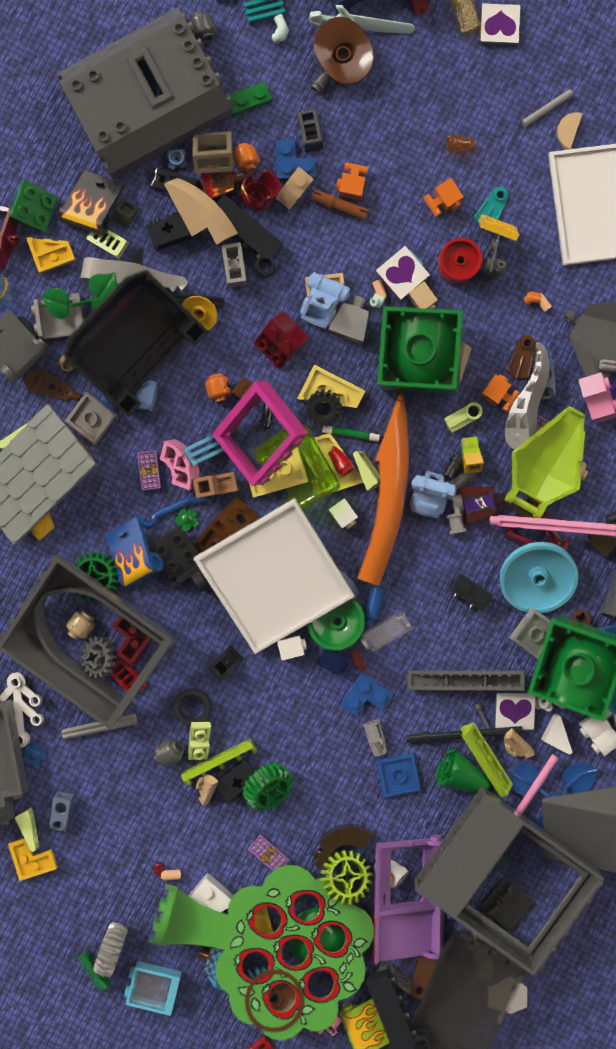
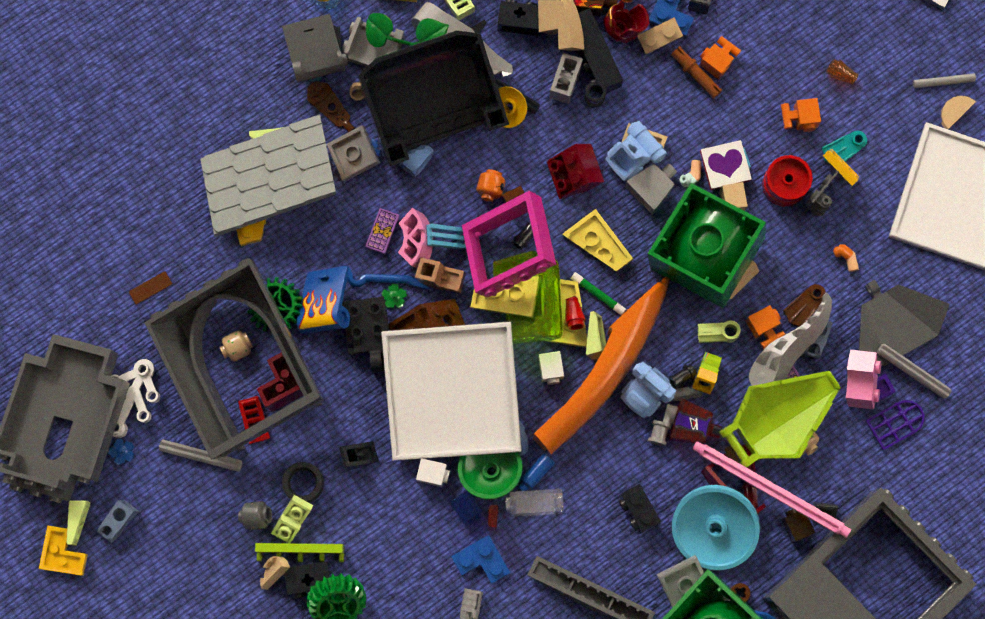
camera: 25 degrees right, 10 degrees down
(98, 657) = (237, 385): dark grey gear -> none
(321, 418) = (575, 263): black tyre -> none

